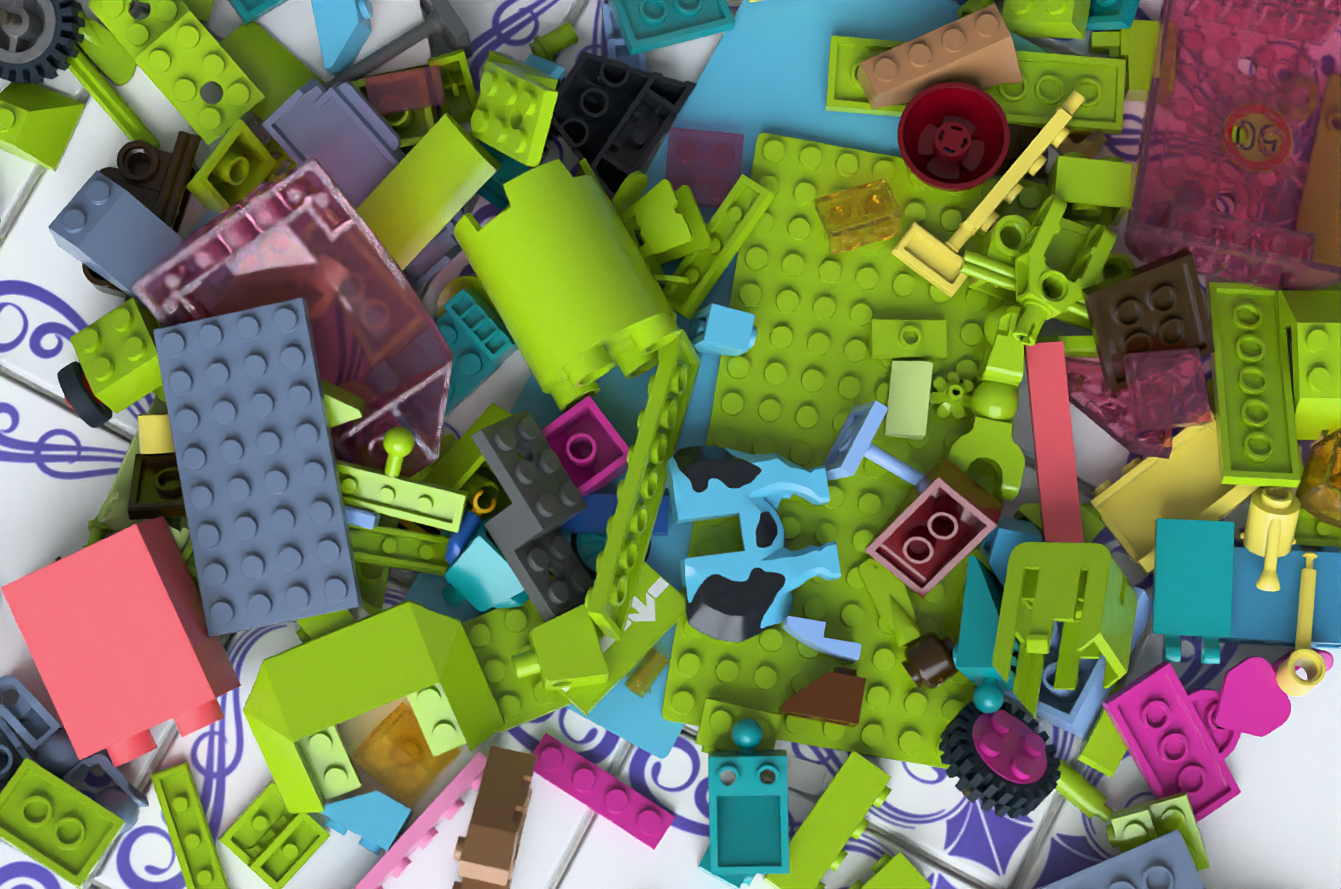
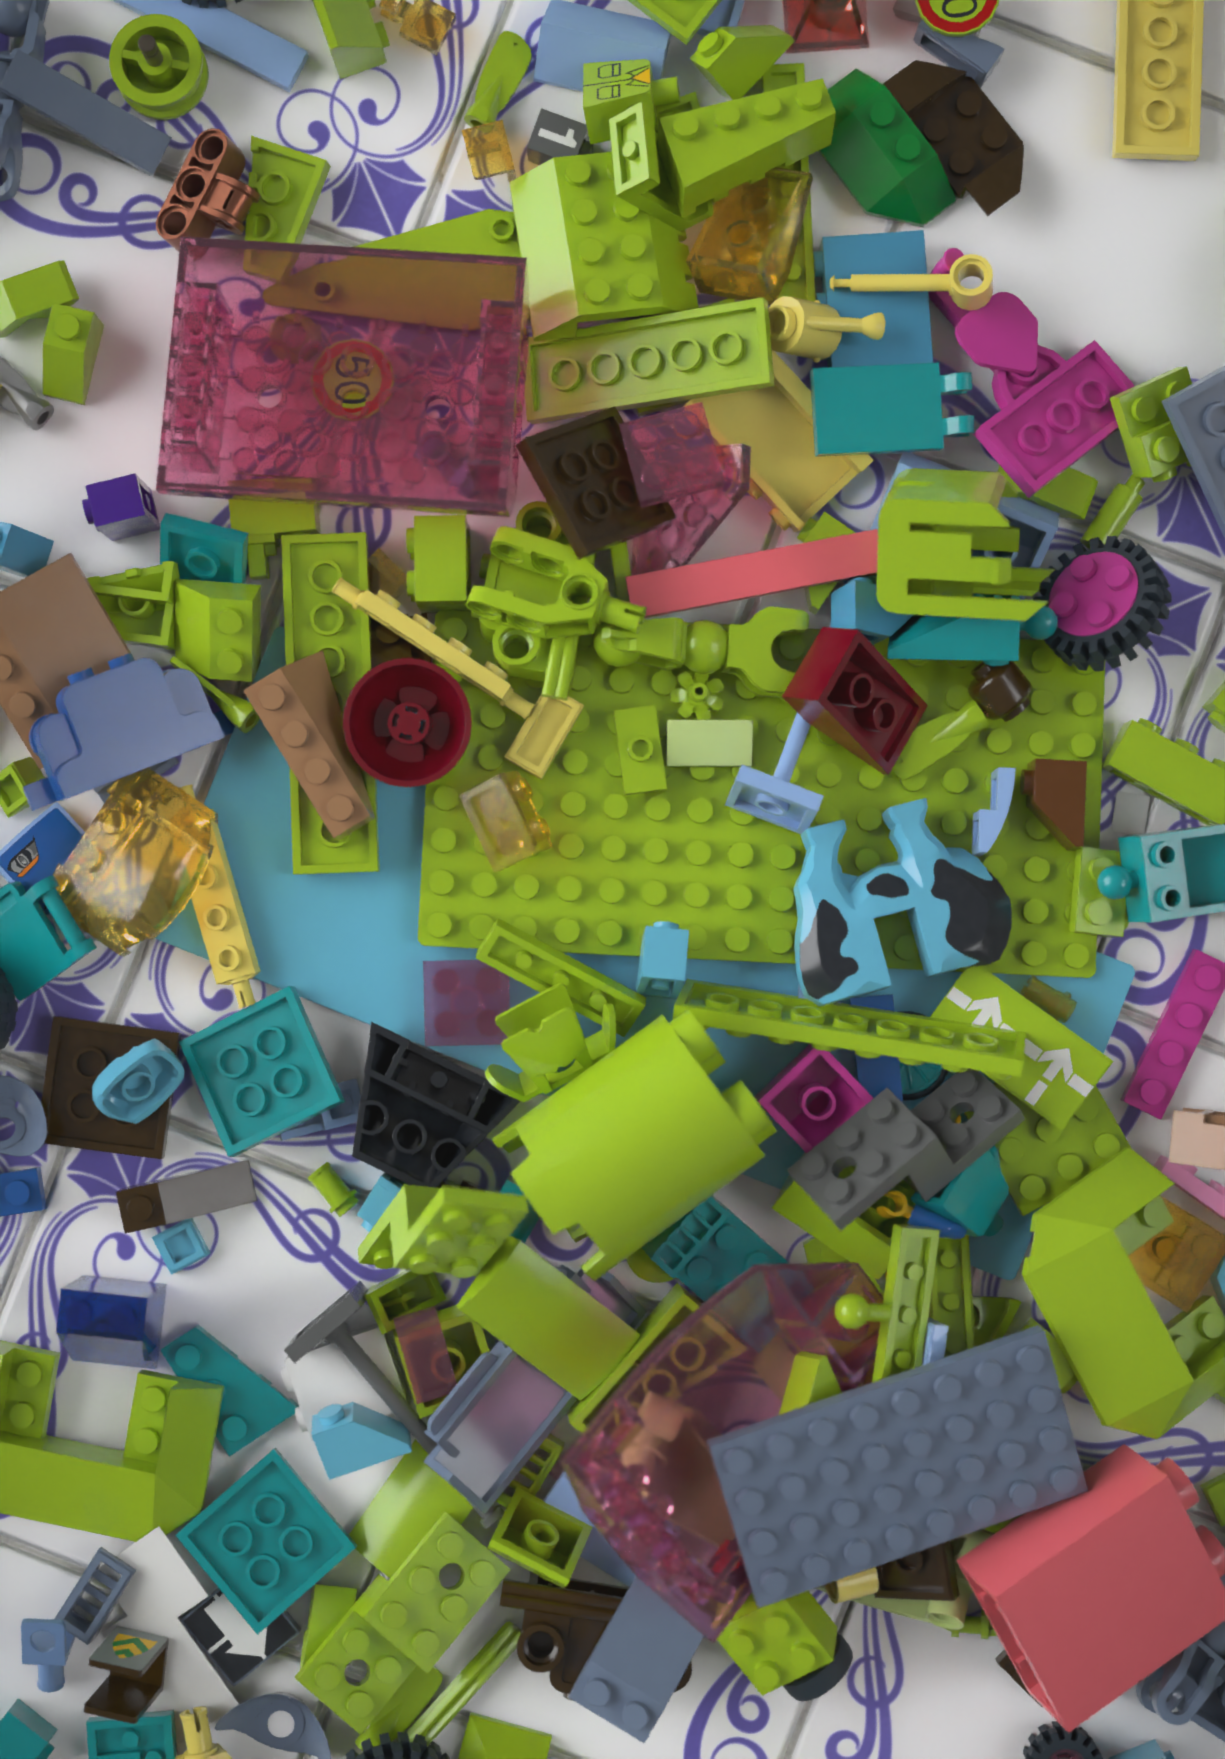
camera: 85 degrees left, 10 degrees up
(564, 652) = (1056, 1095): lime torso -> none

